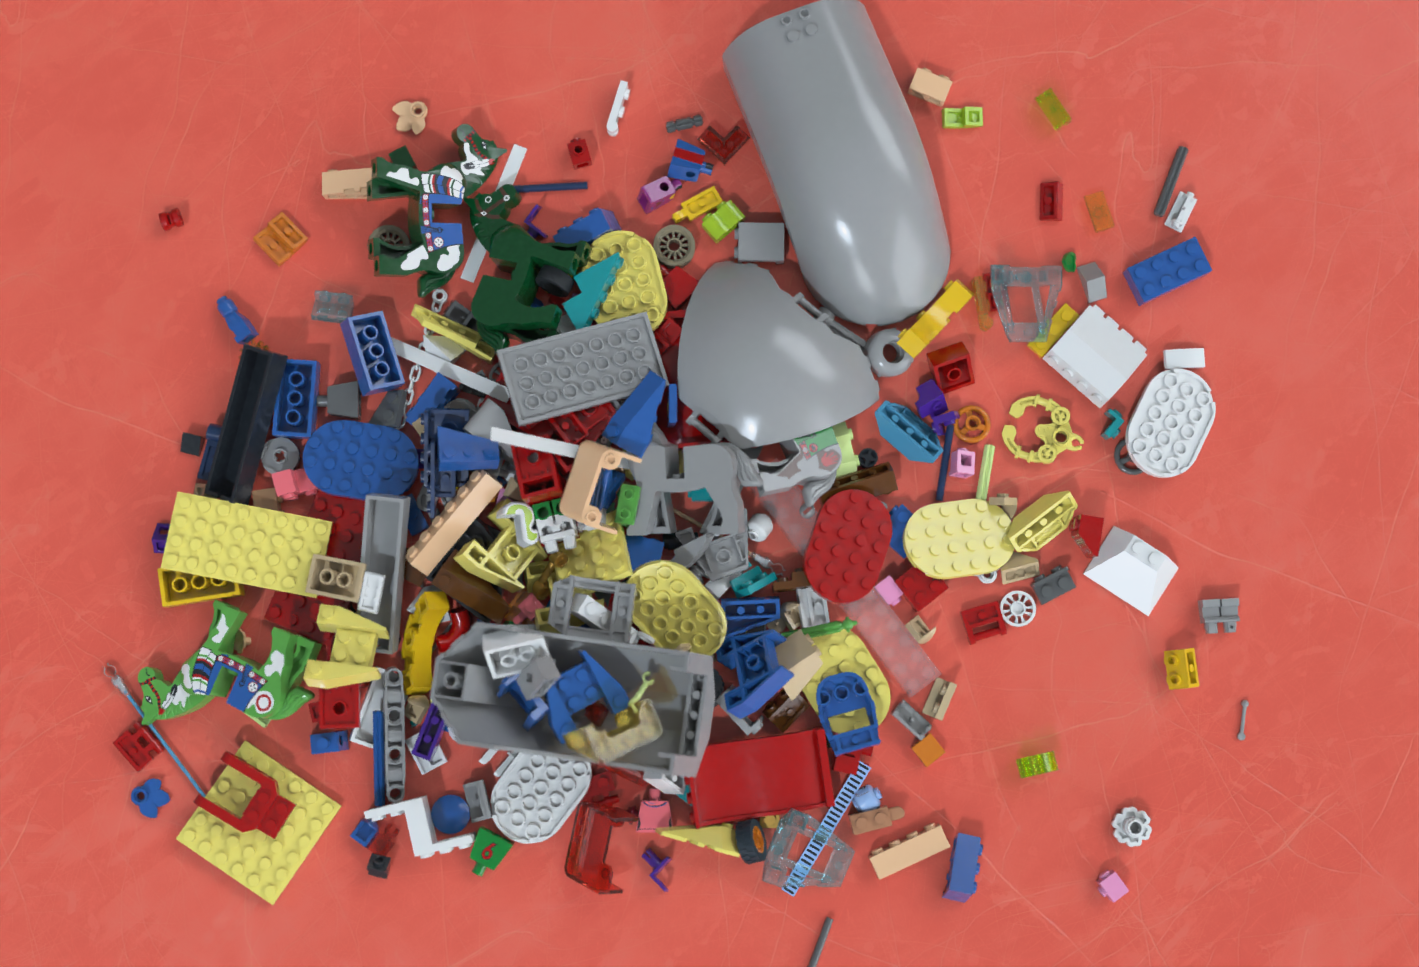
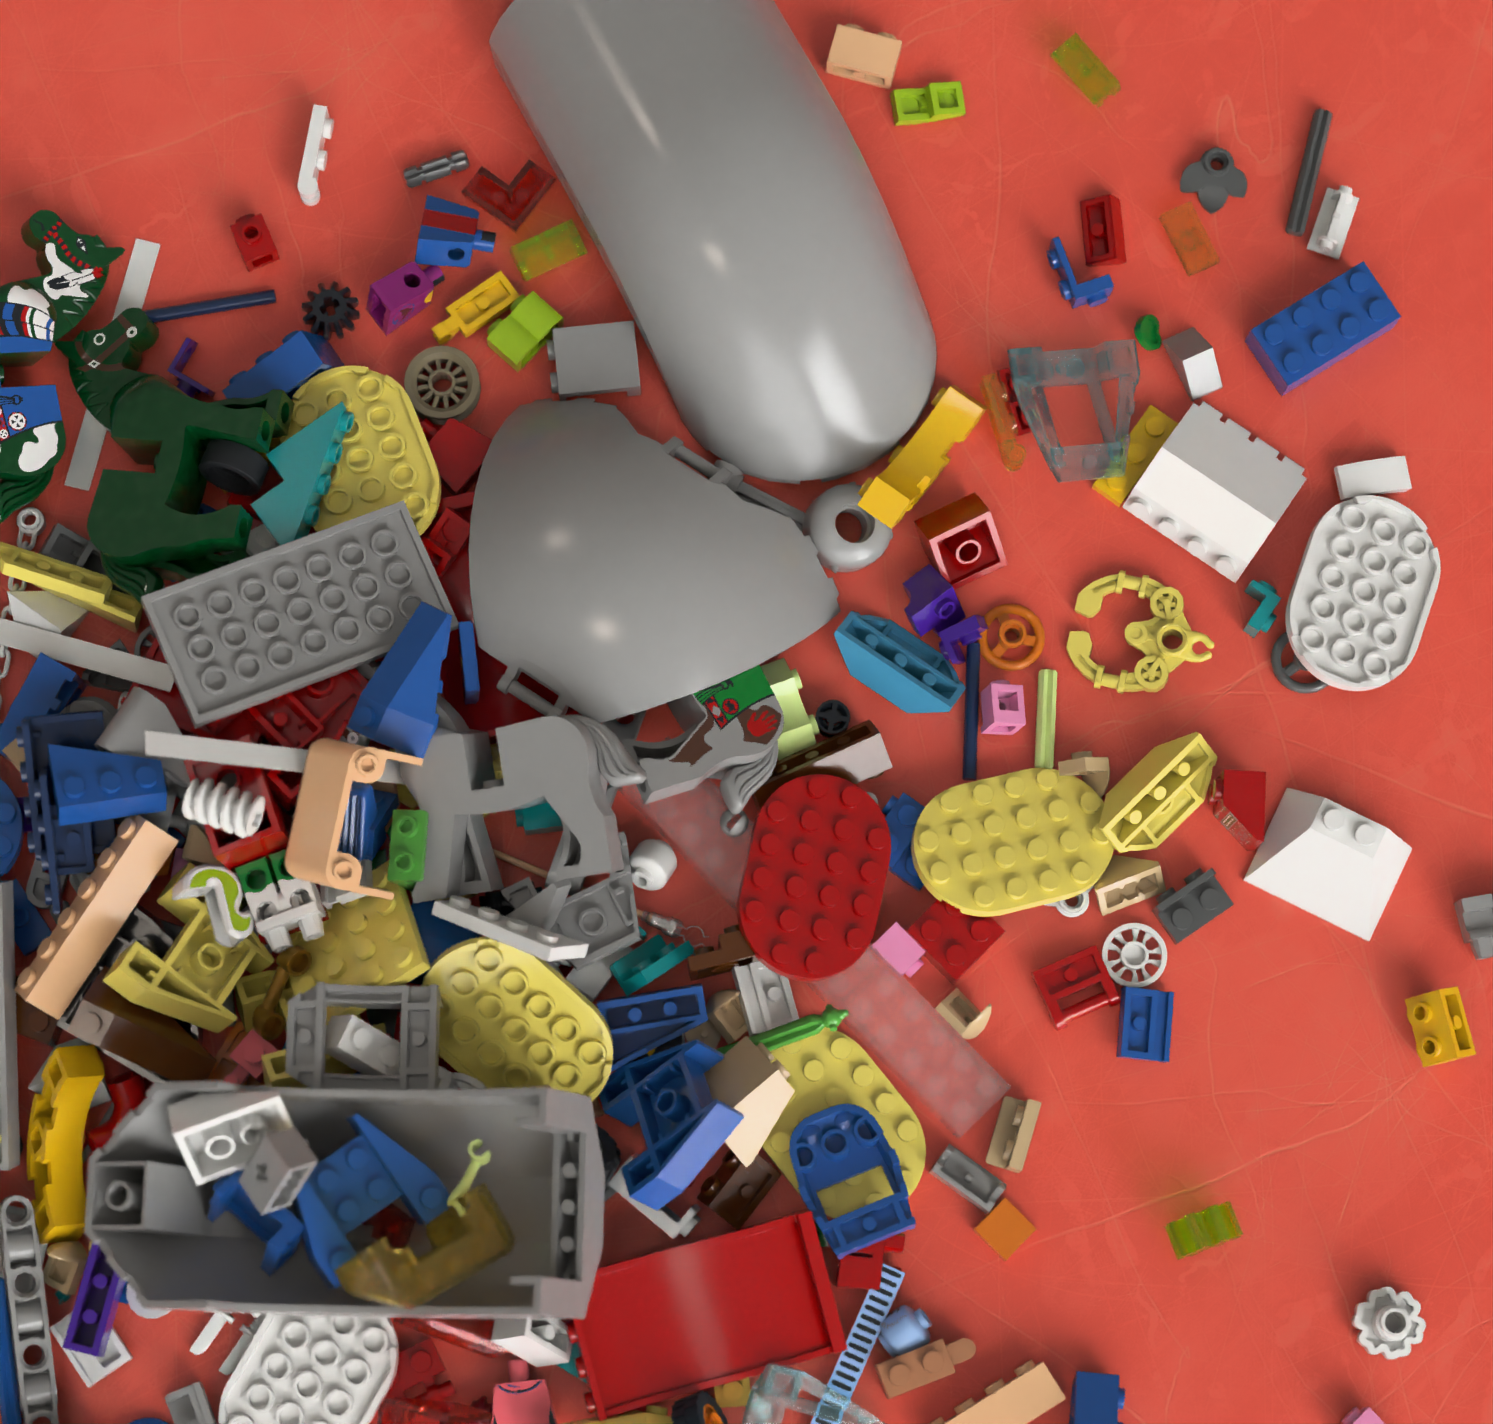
camera: 10 degrees left, 5 degrees down
(529, 475) = (223, 810): none -> white piece
(623, 194) = (343, 306): none -> black gear
(681, 560) = (509, 931): none -> white wing
(741, 177) = (548, 250): none -> clear neon green hinge
(1019, 647) = (1145, 1024): none -> blue plate
(1040, 236) = (1090, 292): none -> blue bracket
(1117, 182) = (1212, 184): none -> dark grey plate

